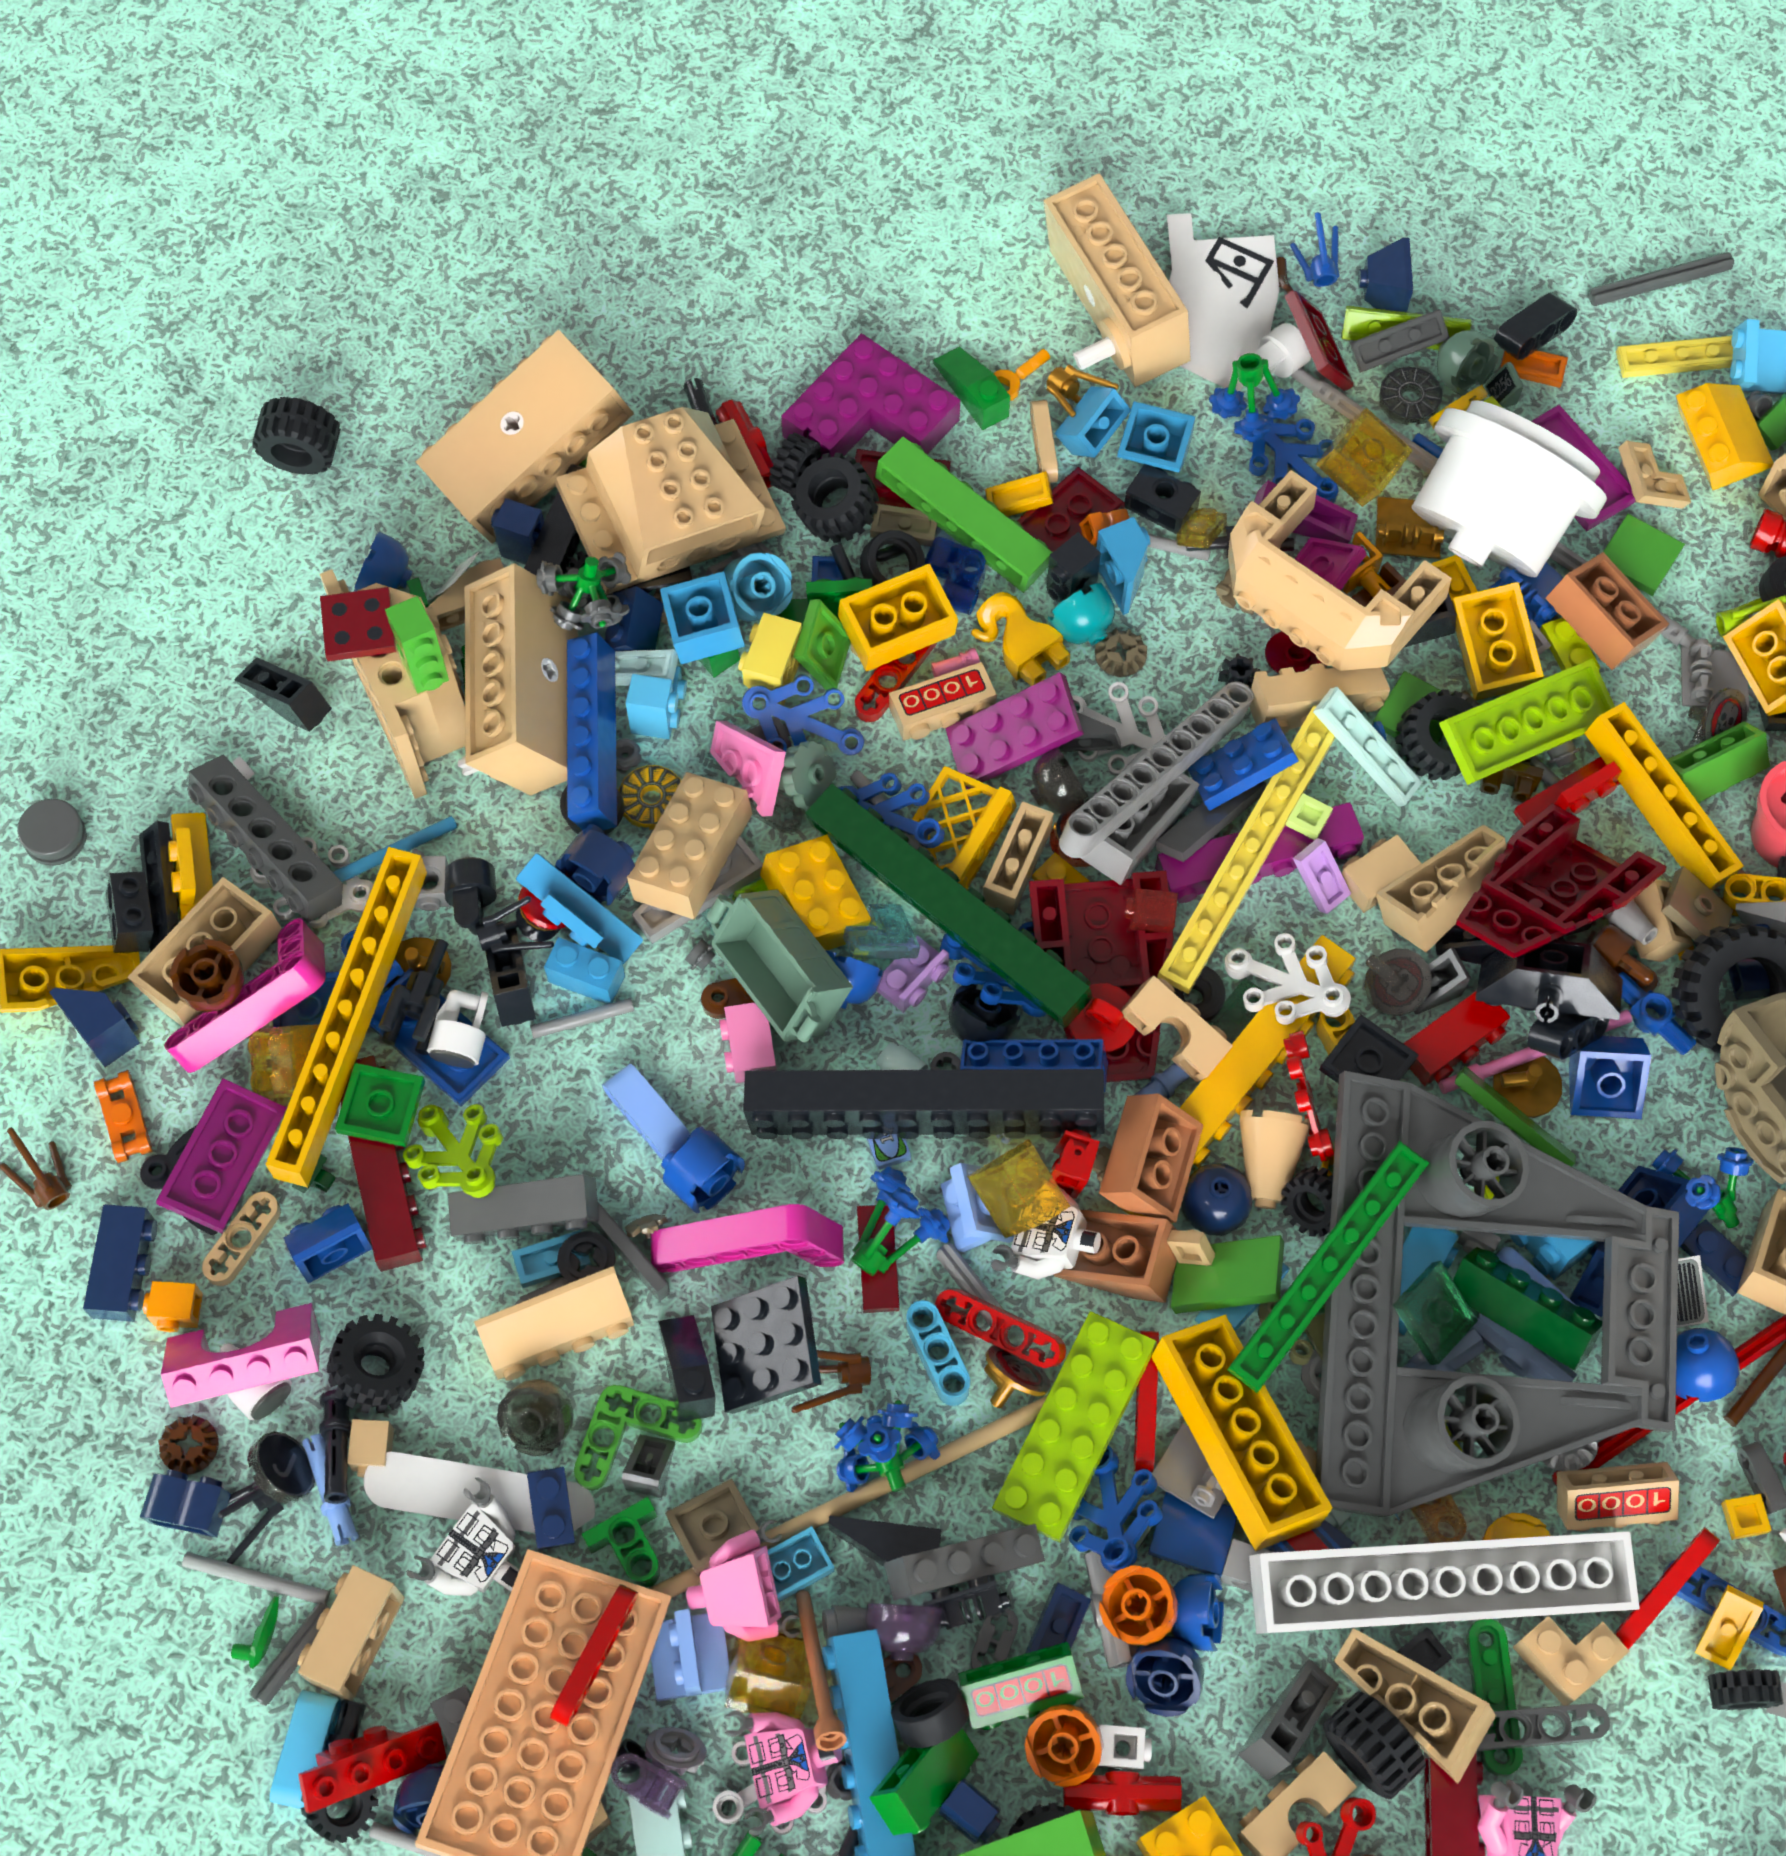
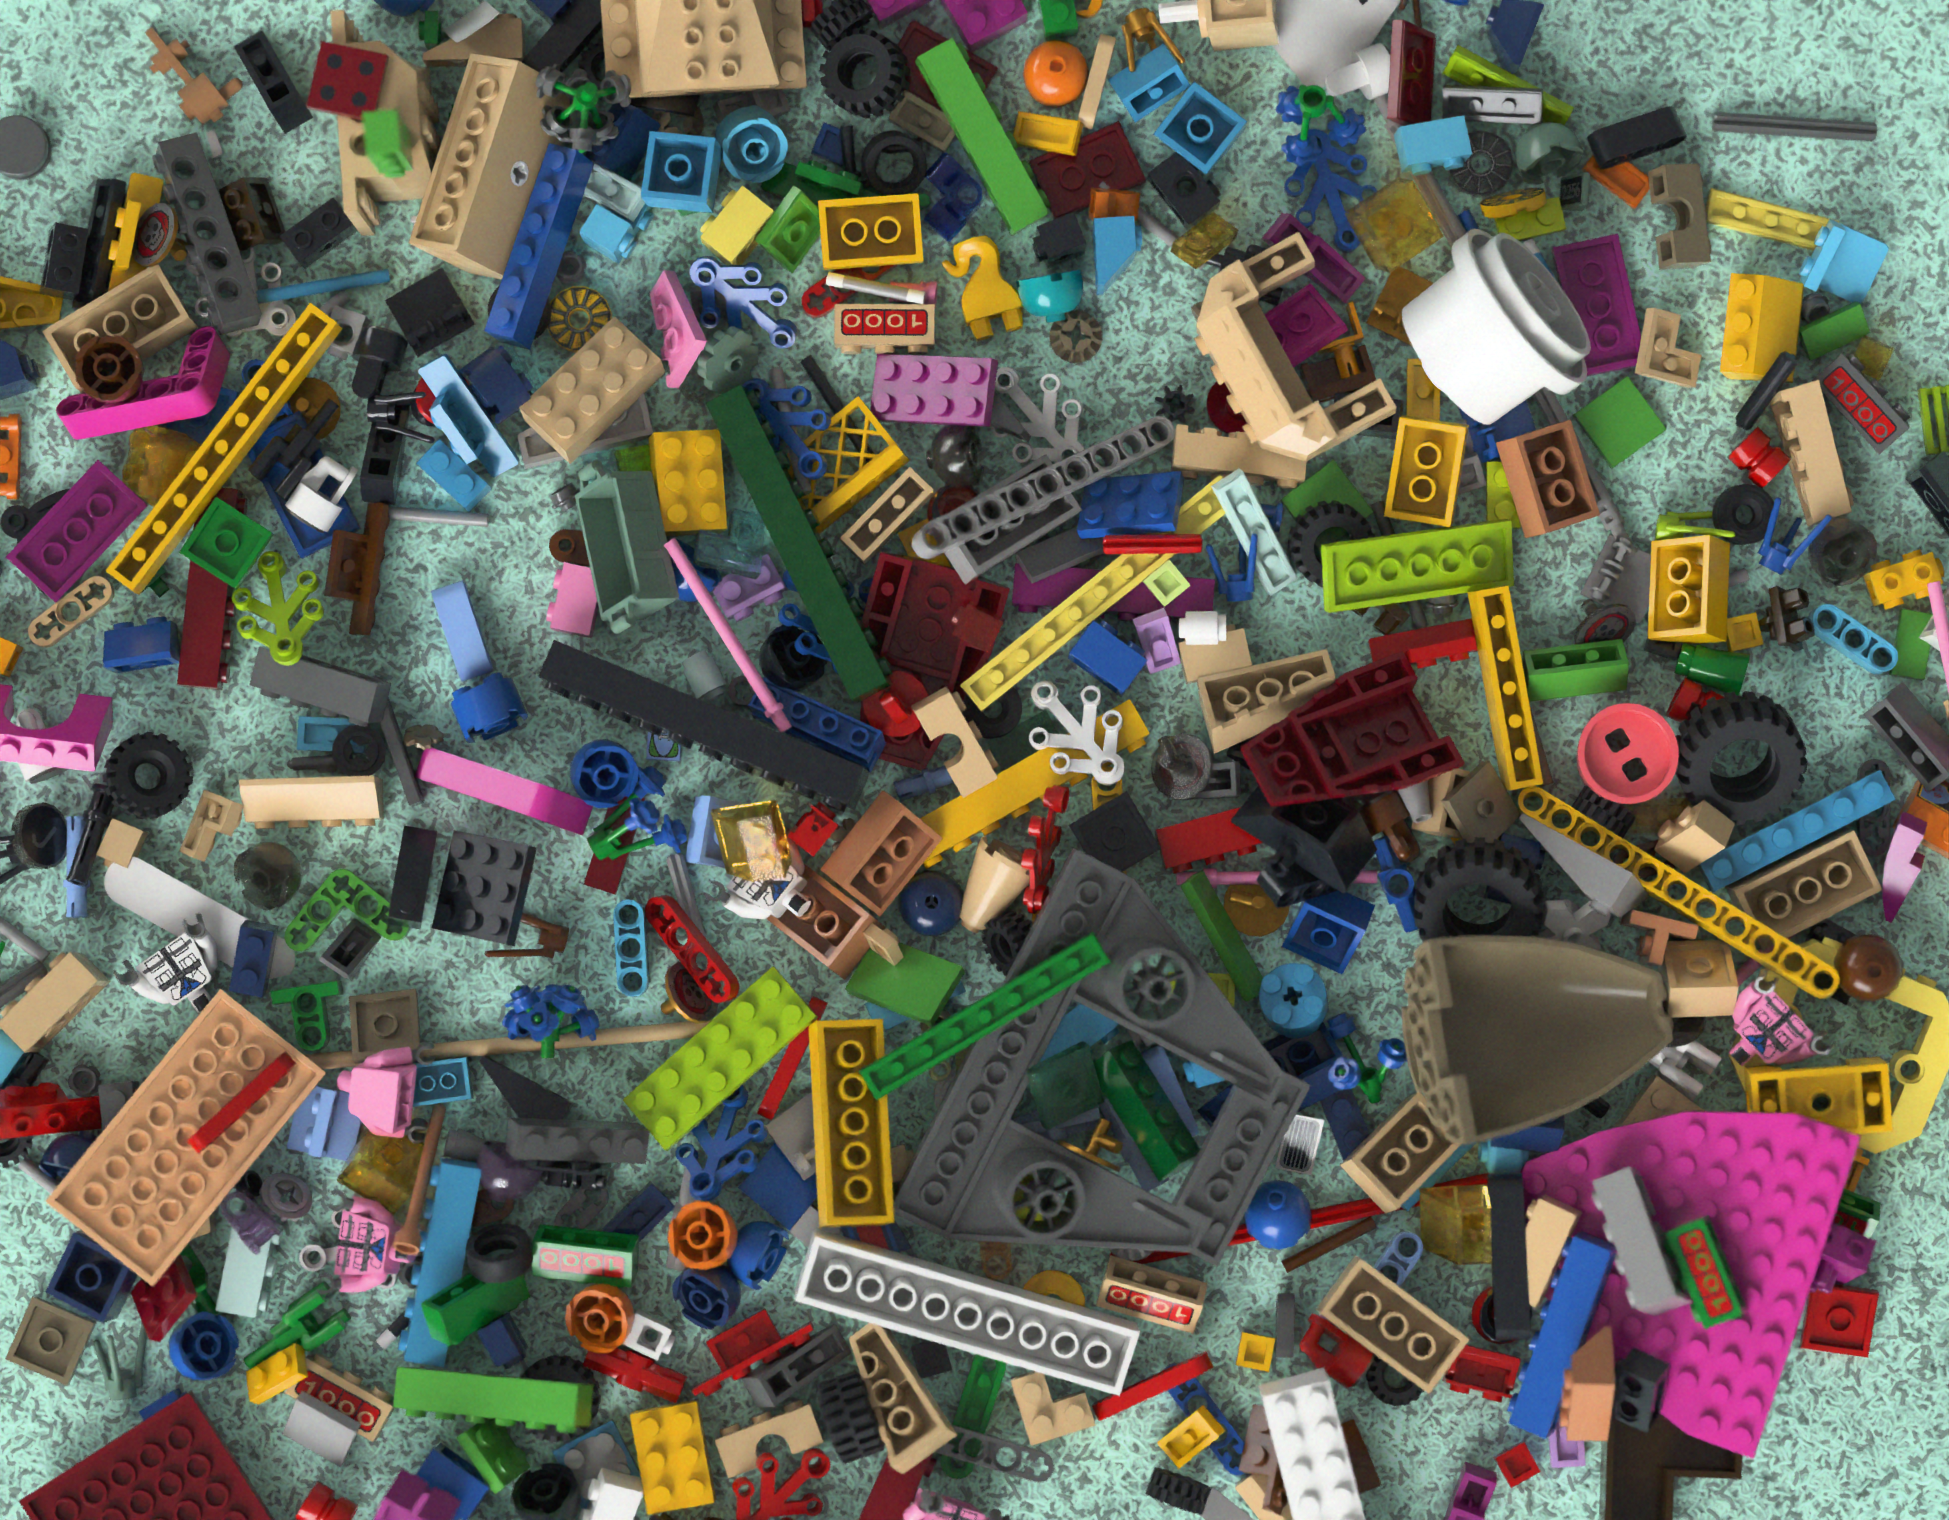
camera: 20 degrees right, 20 degrees up
(215, 854) = (157, 236): none -> shield
(216, 727) = (199, 94): none -> medium nougat piece
(302, 807) = (252, 212): none -> dark brown bracket
(372, 804) = (318, 233): none -> black brick
(403, 1707) = (76, 1084): none -> dark grey plate
(454, 1380) = (211, 815): none -> tan plate
(506, 839) = (429, 312): none -> black hinge
(519, 1090) = (356, 567): none -> reddish brown bracket
(842, 1187) = (603, 773): none -> blue cylinder
(912, 778) = (832, 400): none -> black bar
(920, 669) = (875, 288): none -> light grey bar
(988, 1057) = (772, 708): none -> bright pink bar
(1004, 448) = (1055, 73): none -> orange cylinder
(1226, 1717) = (746, 1344): none -> red bracket
(1281, 782) = (1152, 544): none -> red axle
(1284, 905) = (1108, 657): none -> blue brick
(1362, 843) = (1203, 627): none -> white brick
(1365, 384) = (1433, 145): none -> medium azure brick
(1372, 804) = (1240, 584): none -> blue plant
(1492, 1356) = (1098, 1139): none -> pearl gold shield
(1594, 353) = (1681, 190): none -> dark tan arch
(1614, 1150) = (1292, 981): none -> dark azure brick
(1758, 474) = (1766, 390): none -> black axle

